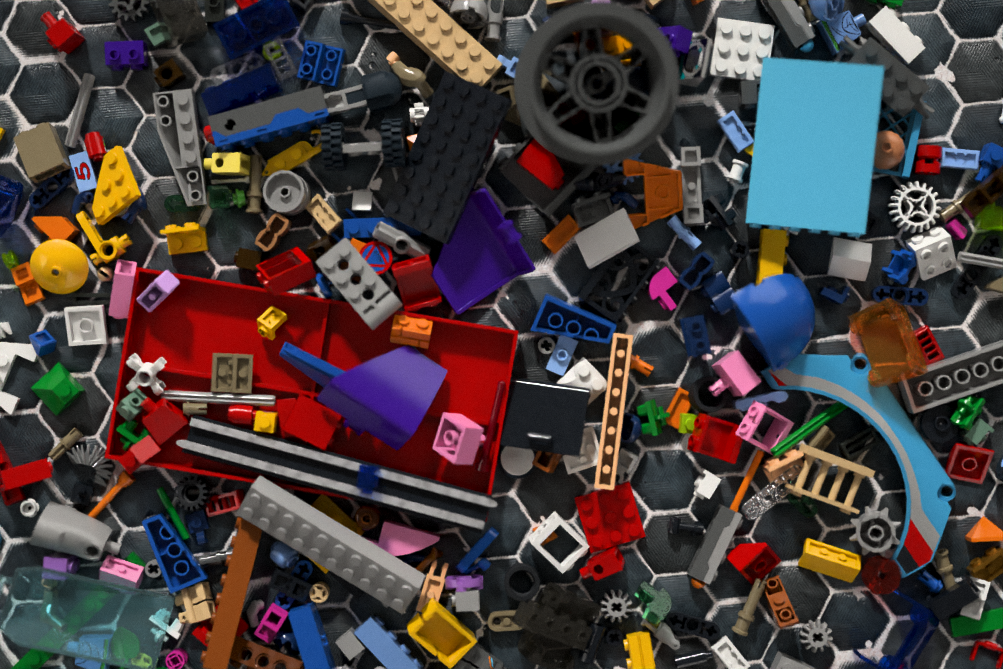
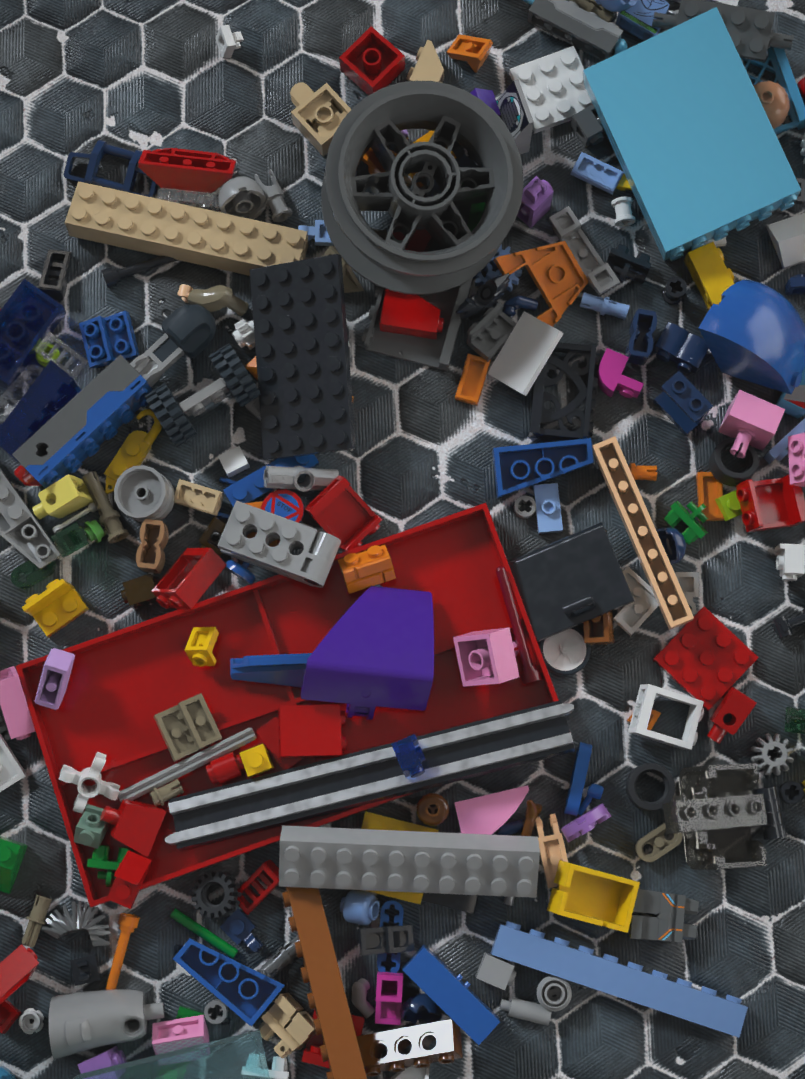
camera: 25 degrees left, 10 degrees down
(316, 594) = (427, 935): tan wheel -> none
(466, 600) = (599, 839): light grey brick -> none
(480, 254) = (397, 443): dark purple panel -> none
(585, 376) = (586, 513): white slope -> none
(677, 130) = (535, 201): none -> medium lavender brick

